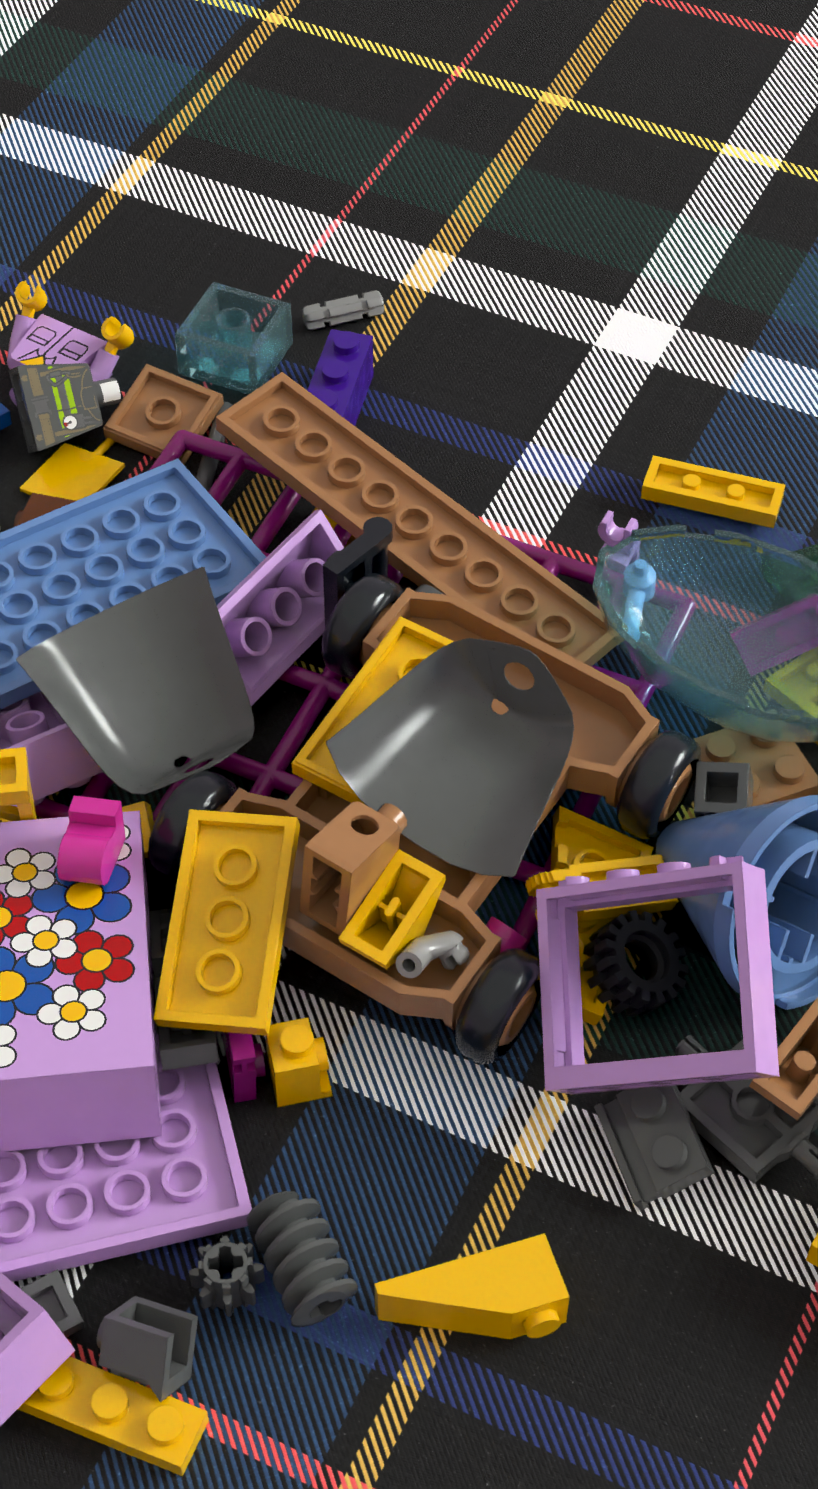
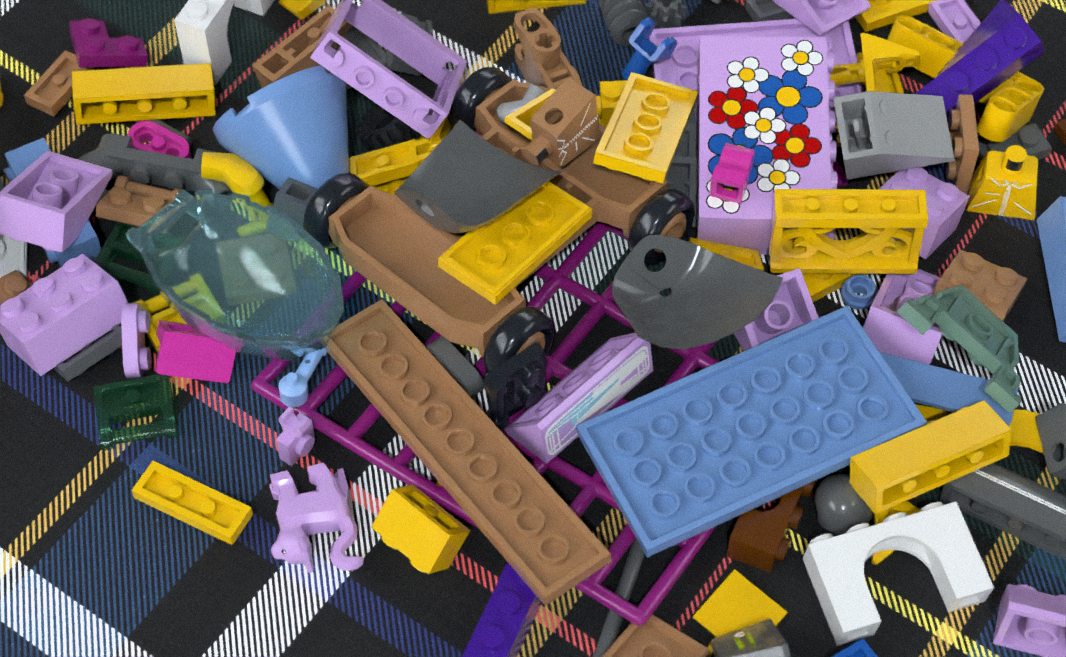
camera: 170 degrees left, 5 degrees up
(243, 1146) = (645, 50): none -> blue piece
(418, 1101) = (543, 58): none -> medium nougat piece
(456, 479) = (420, 529): none -> yellow brick
(569, 493) = (314, 513): none -> lavender animal

